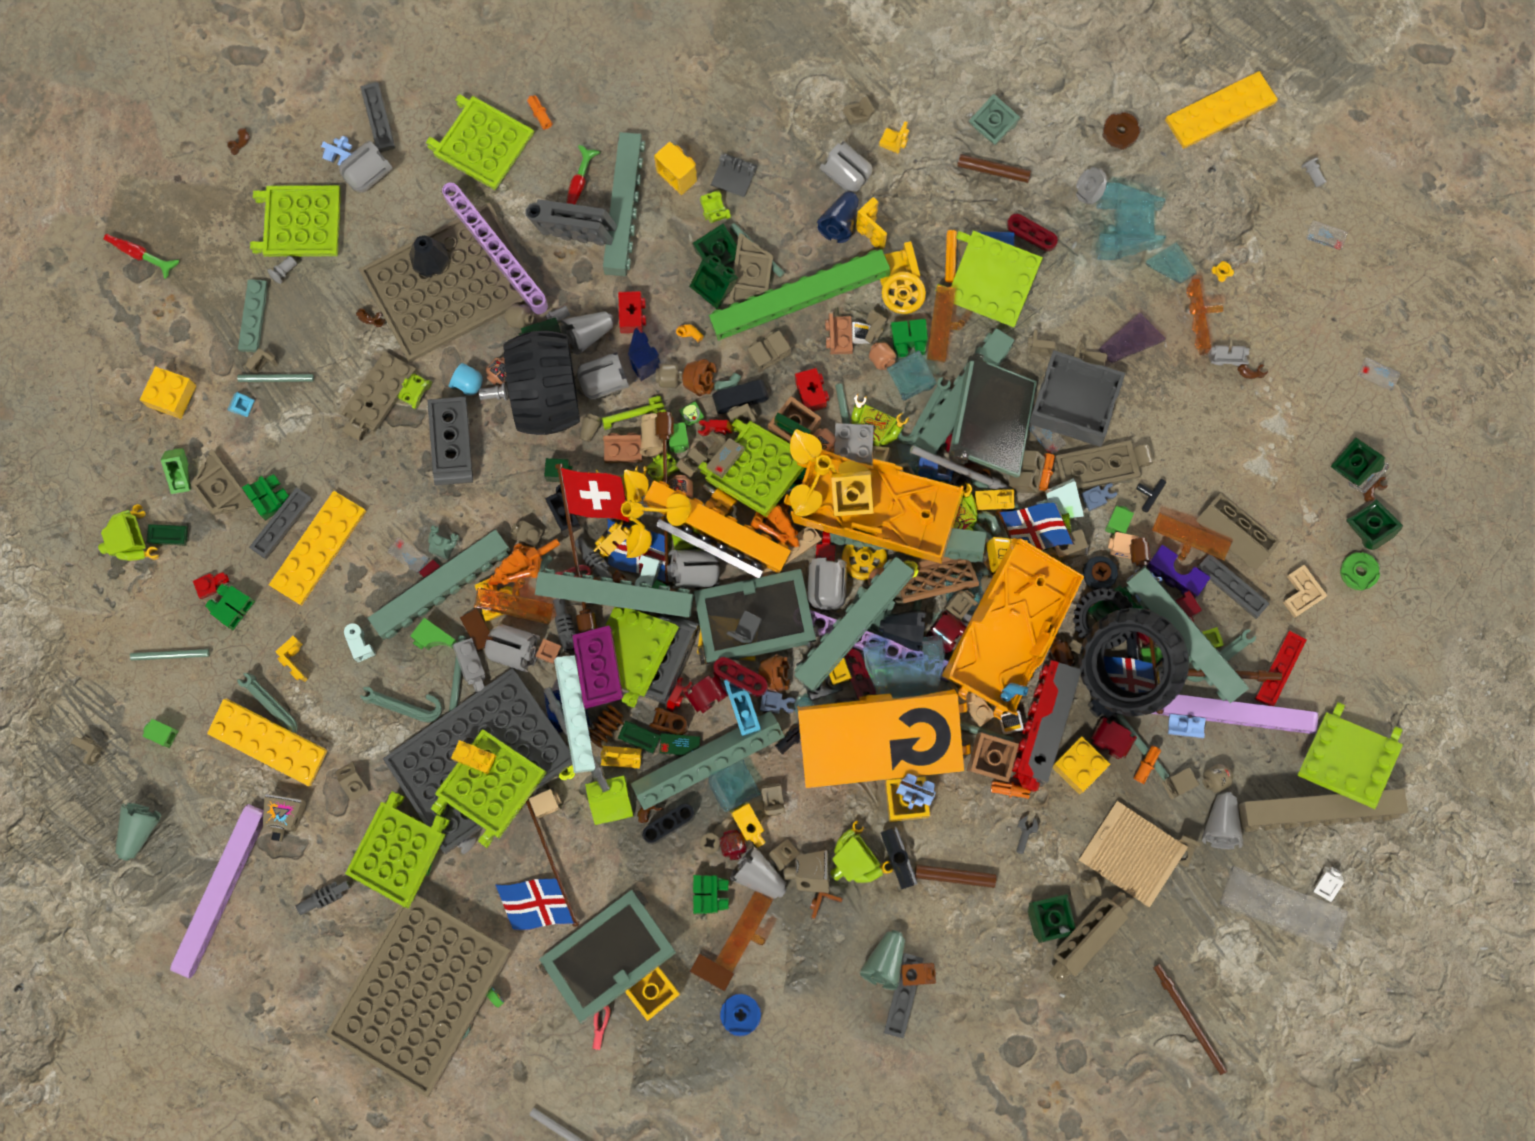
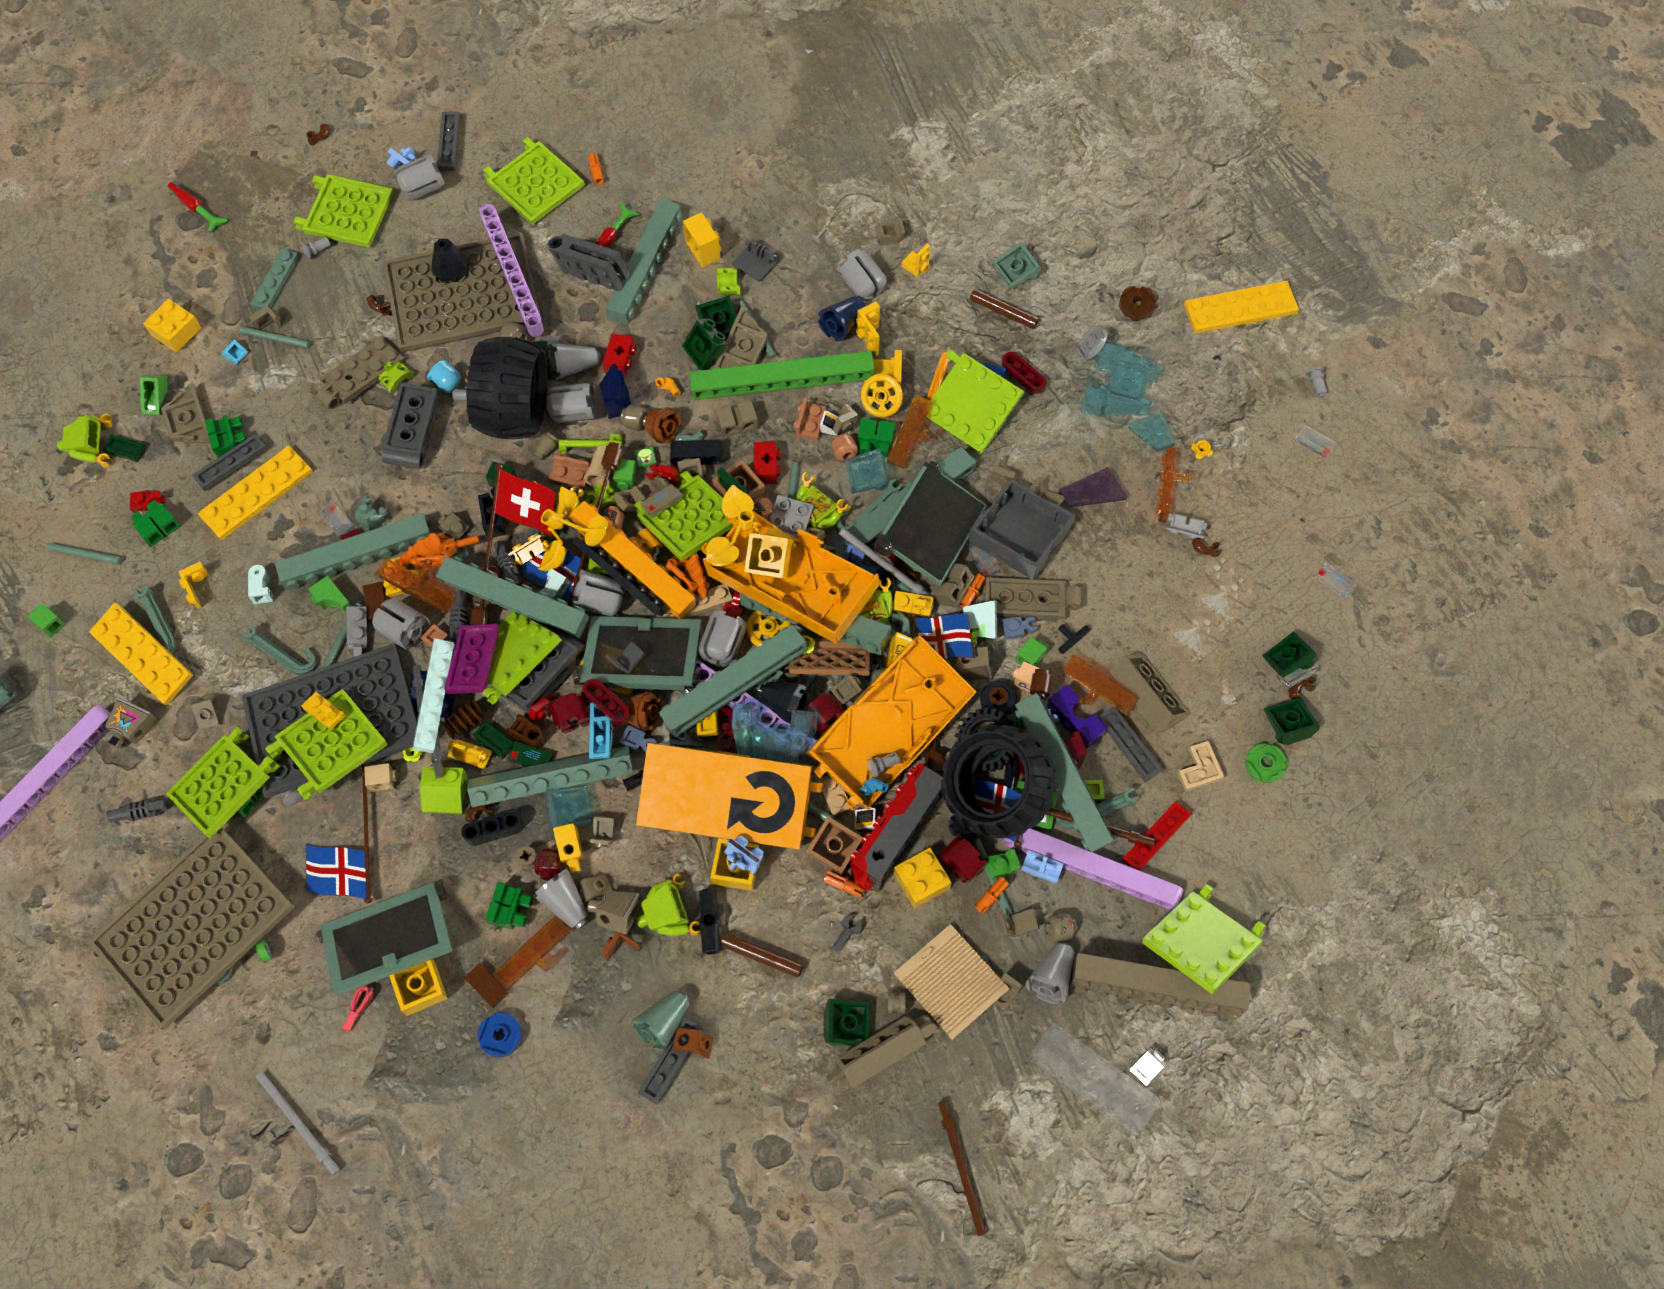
camera: 15 degrees right, 10 degrees down
(1012, 669) = (882, 763): none -> light grey pin
(1149, 732) = (1003, 864): none -> bright green bracket

